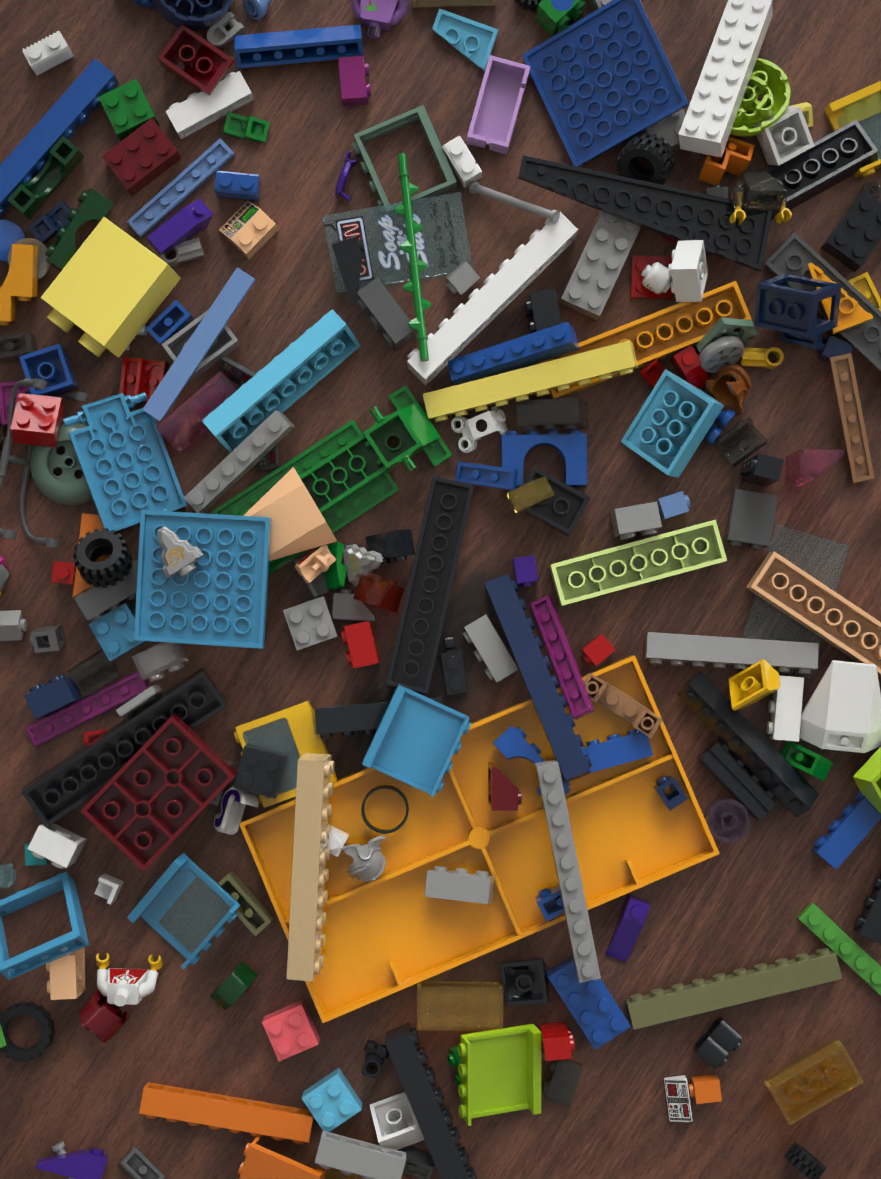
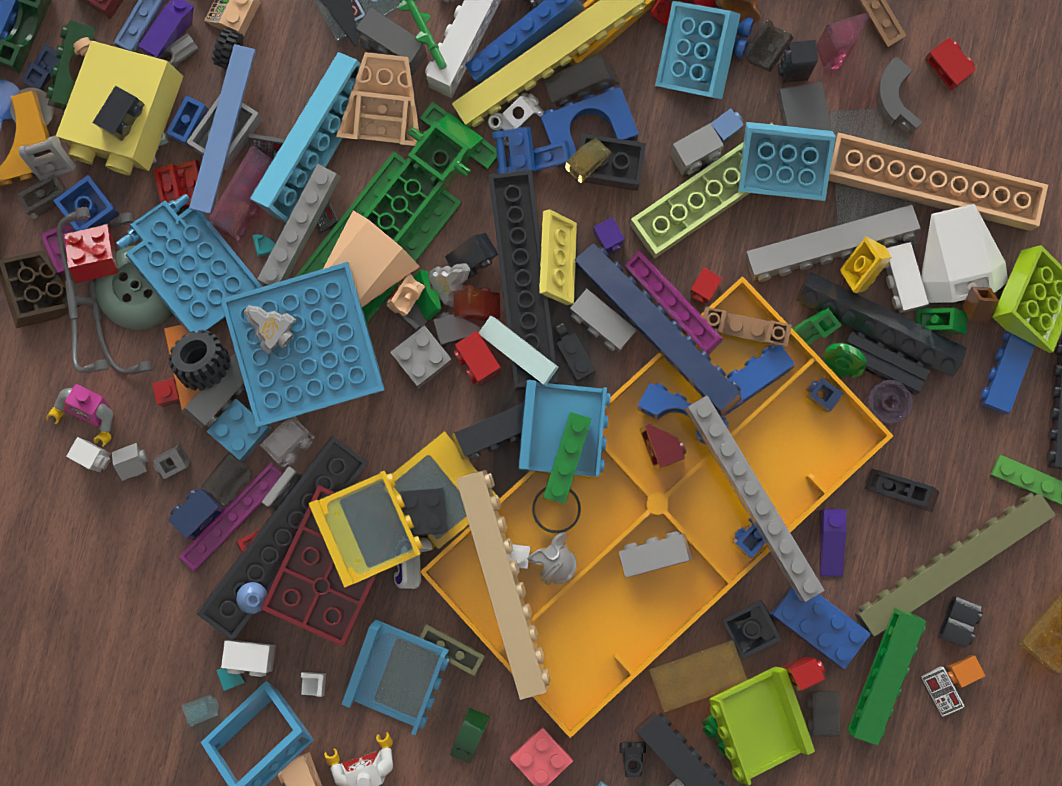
camera: 20 degrees left, 5 degrees down
(24, 320) = (53, 163): none -> light grey plate
(77, 794) = (251, 597): none -> medium blue brick
(94, 218) = (81, 46): none -> light nougat plate
(105, 299) = (119, 113): none -> black brick
(200, 772) = (366, 528): none -> clear light blue panel
(201, 464) = (263, 245): none -> teal tile
(229, 263) = (224, 47): none -> black tyre
(356, 370) = (381, 101): none -> light nougat wedge
(401, 652) = (518, 350): none -> light aqua tile
(409, 771) = (567, 458): none -> green brick
(469, 576) = (558, 257): none -> light yellow plate
(471, 460) = (520, 150): none -> blue plate
(631, 1069) = (886, 676): none -> green brick
(686, 724) = (816, 326): none -> green slope
(701, 766) = (845, 360): none -> green tile
(710, 903) = (903, 490): none -> black slope
(715, 562) = (786, 161): none -> medium azure slope
(834, 533) = (888, 97): none -> dark grey arch
(846, 760) = (980, 304): none -> reddish brown brick

